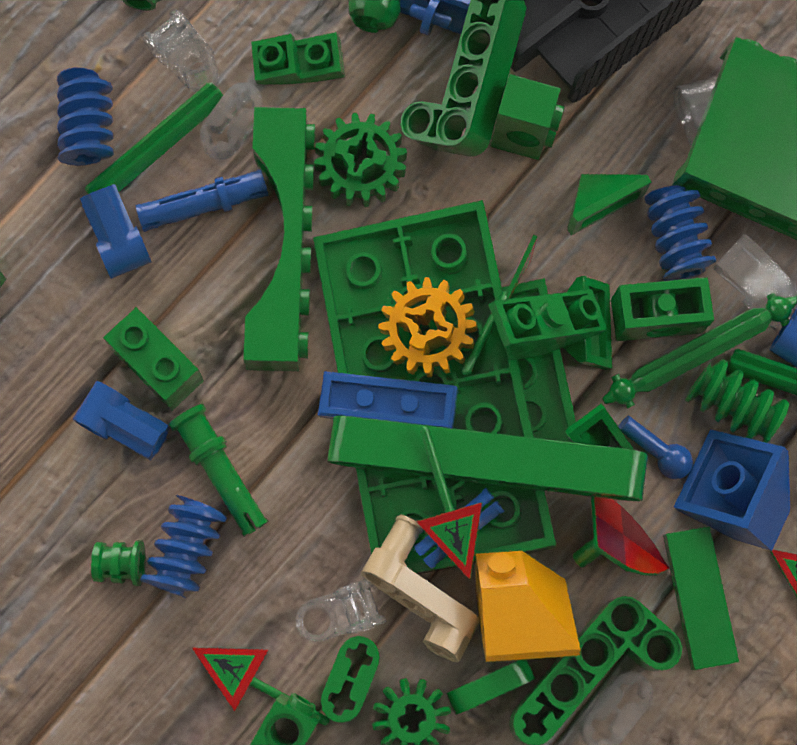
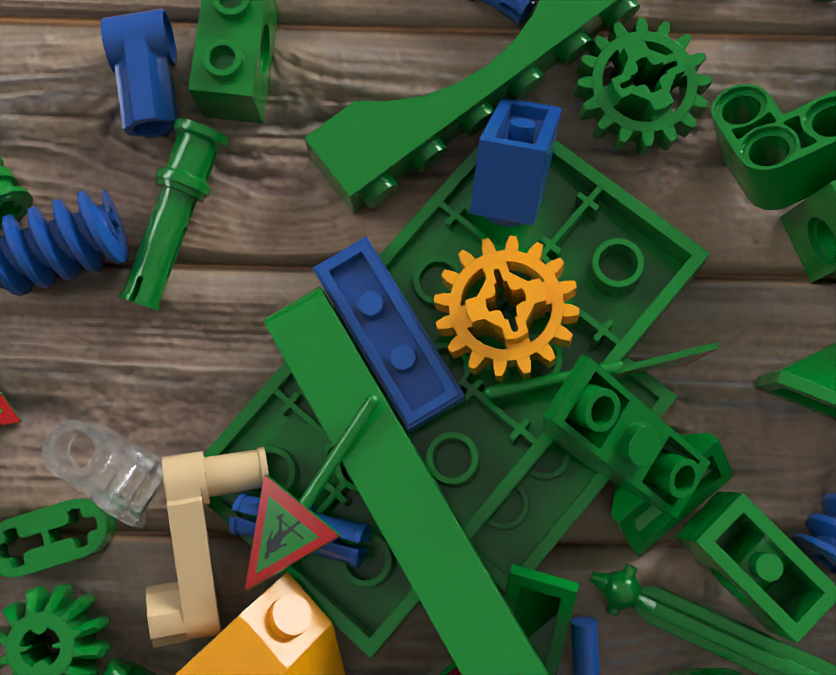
camera: 55 degrees right, 5 degrees up
(350, 258) = (514, 162): none -> blue slope

